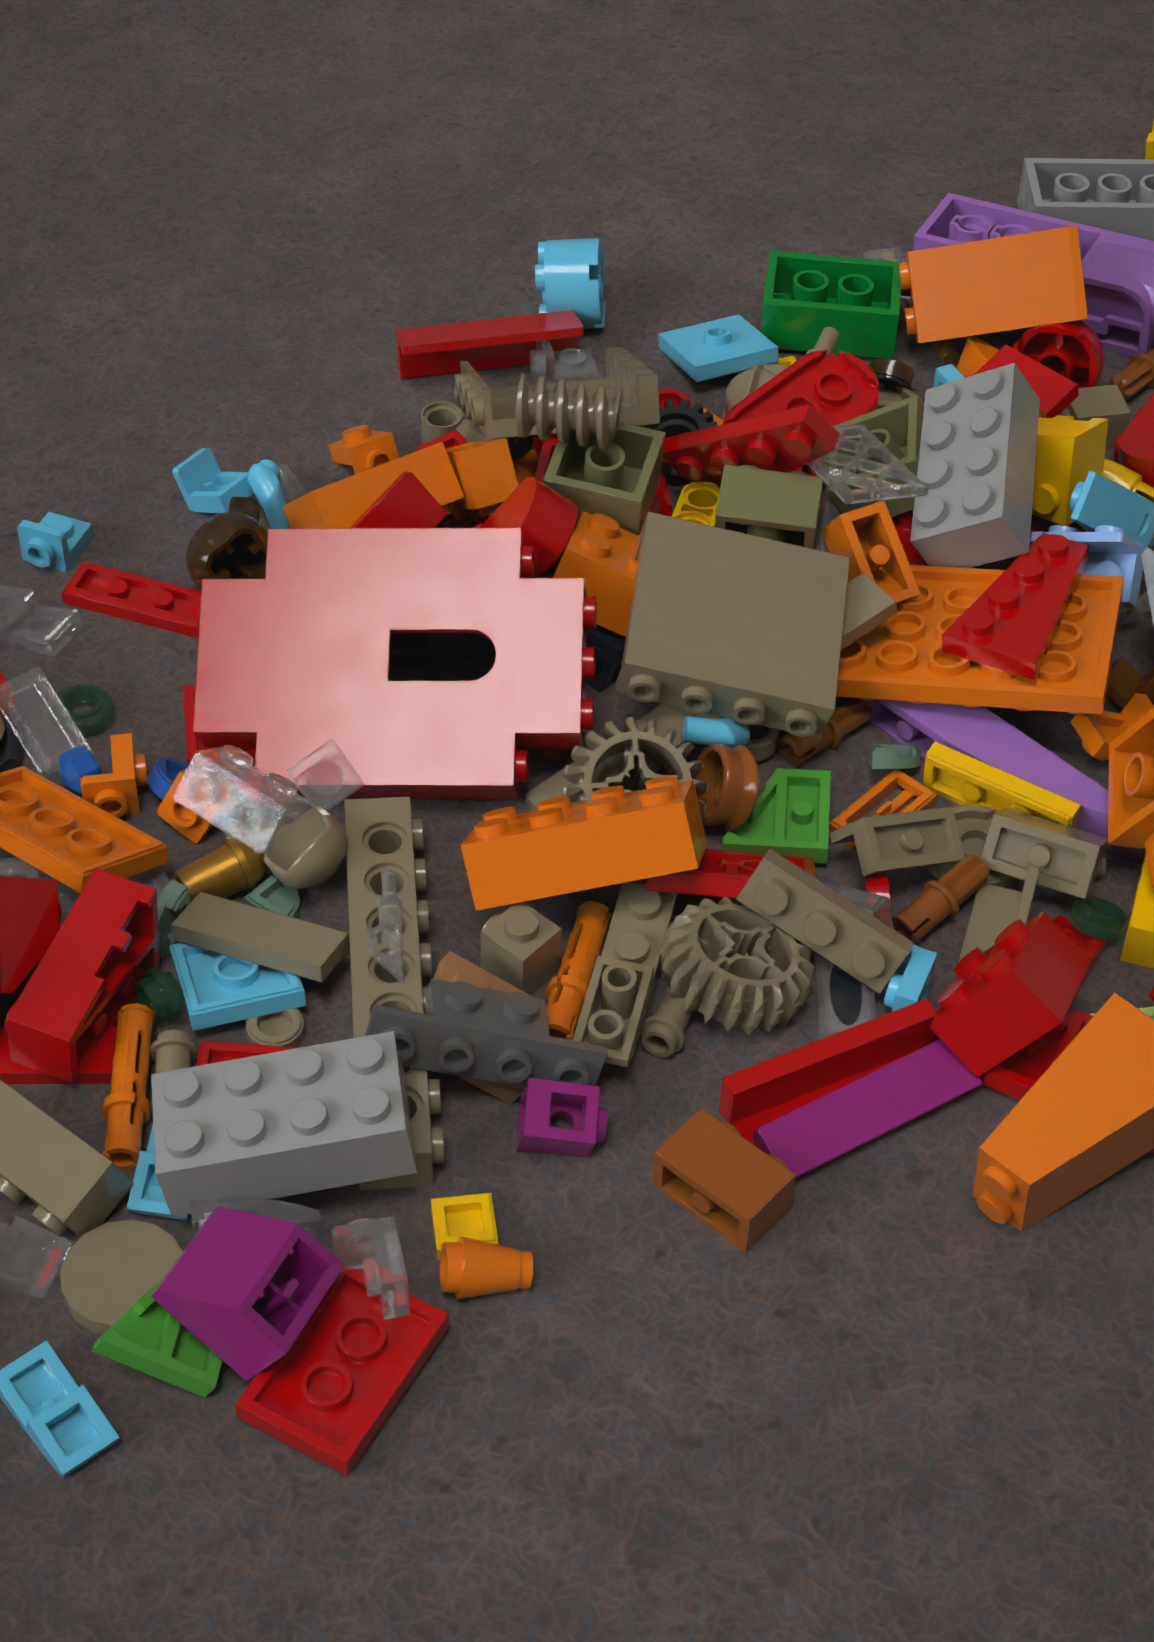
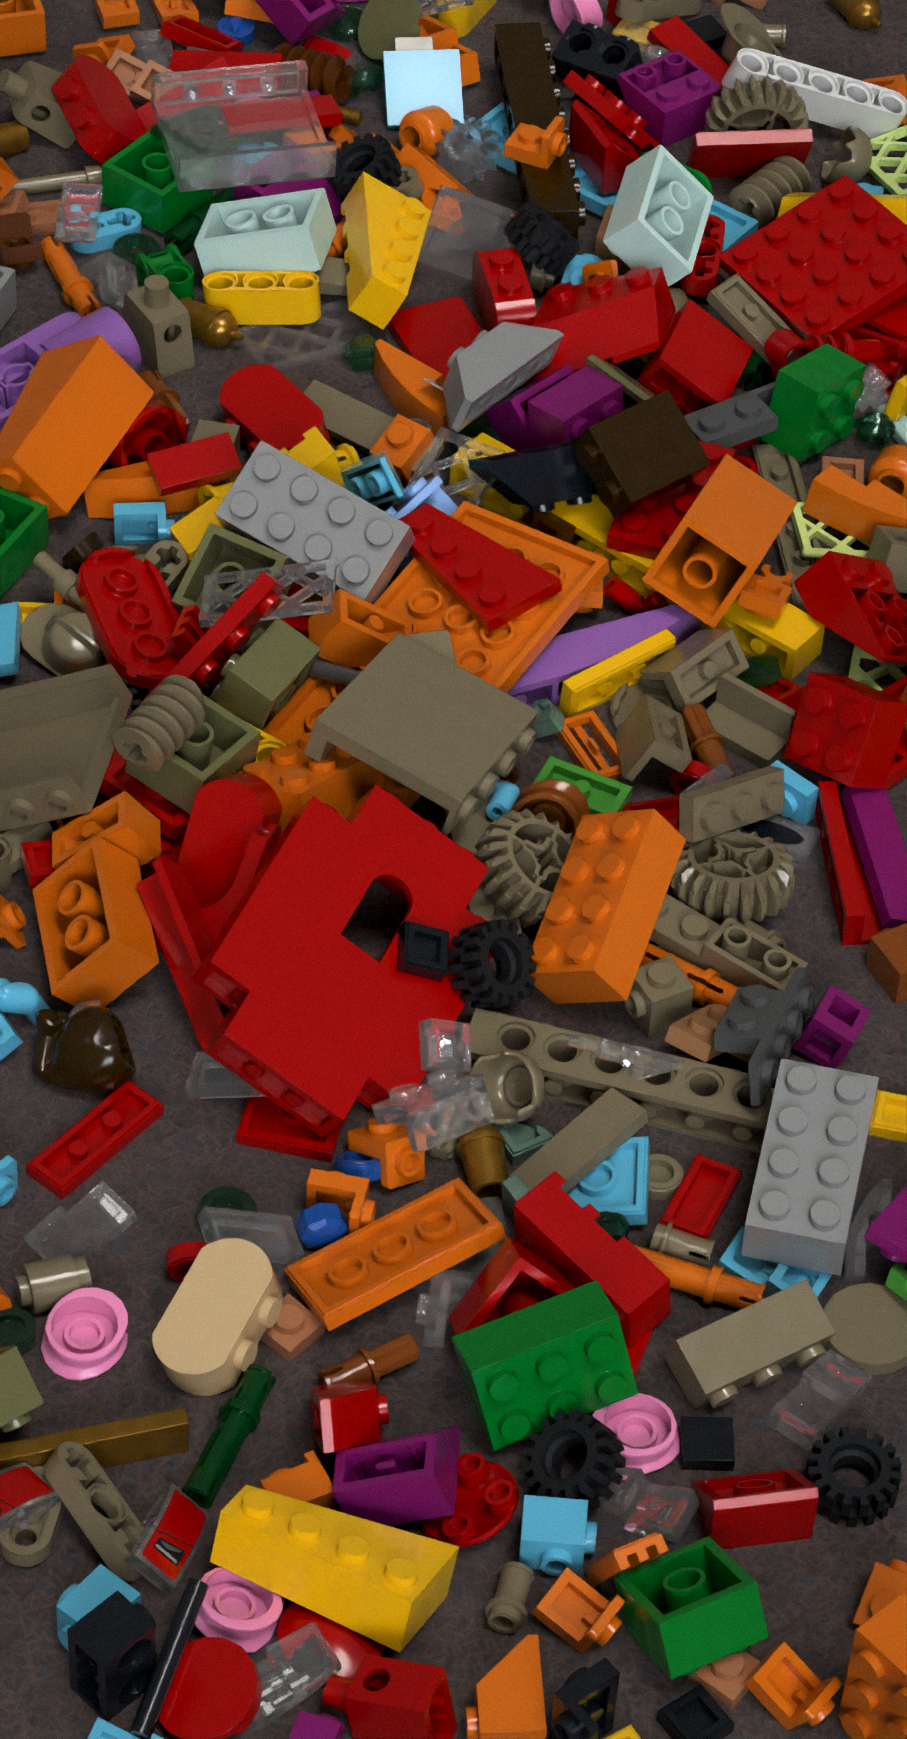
camera: 70 degrees left, 0 degrees up
(419, 784) = (473, 968): none -> black tyre
(425, 710) = (422, 951): none -> black tile

